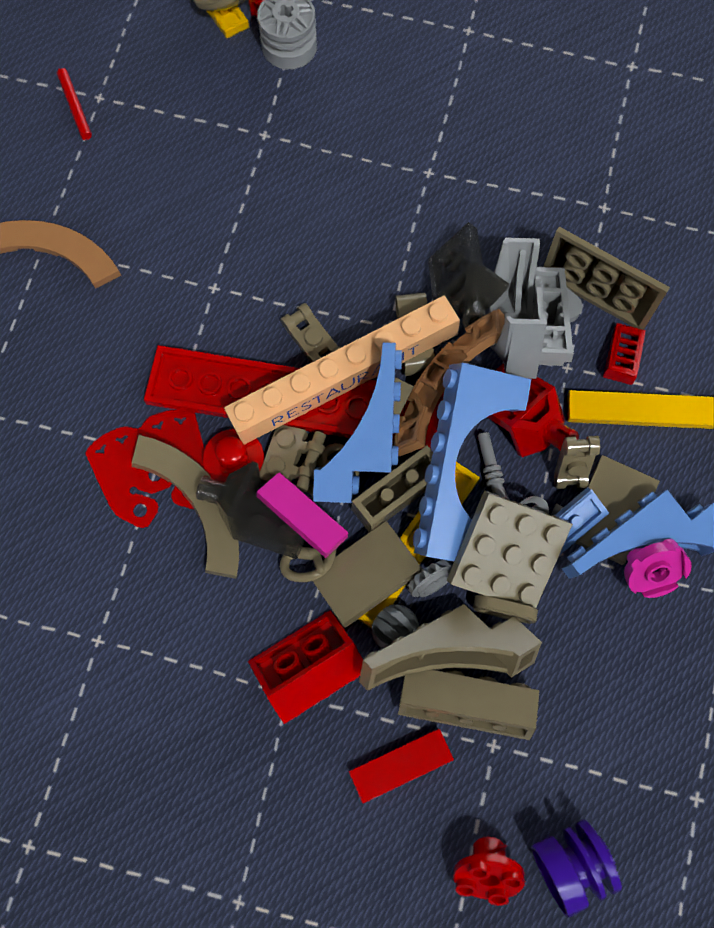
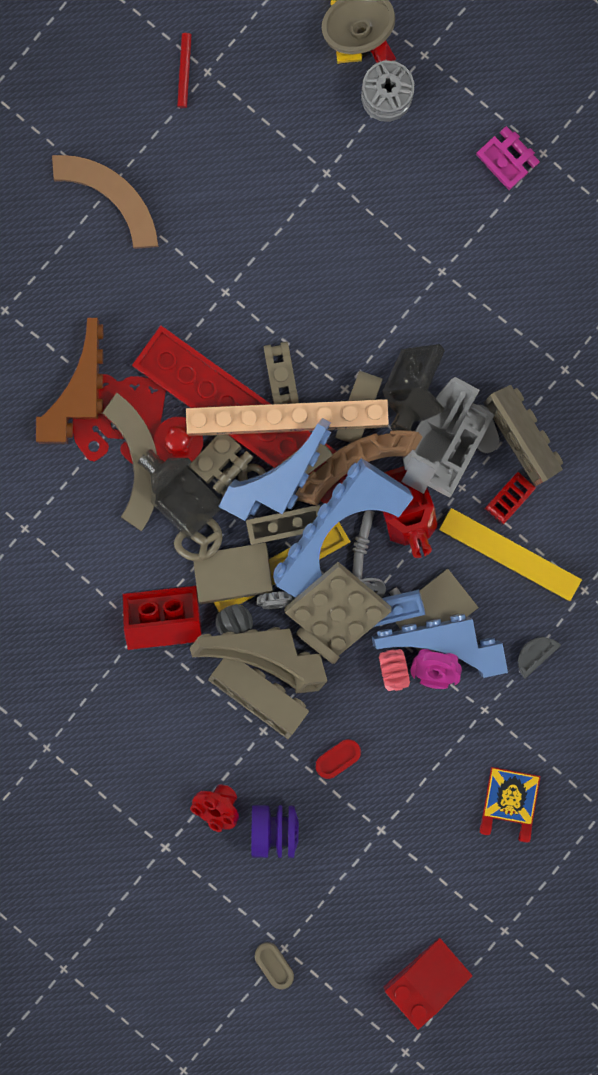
camera: 20 degrees right, 15 degrees up
(97, 463) = (81, 395): none -> dark orange arch
(302, 514) = (206, 512): dark pink tile -> none
(401, 766) = (194, 714): red tile -> none
(437, 44) = (502, 162): none -> dark pink plate
(576, 461) = (419, 568): dark tan plate -> none
(599, 735) = (338, 758): none -> red tile
(609, 593) = (394, 669): none -> coral gear

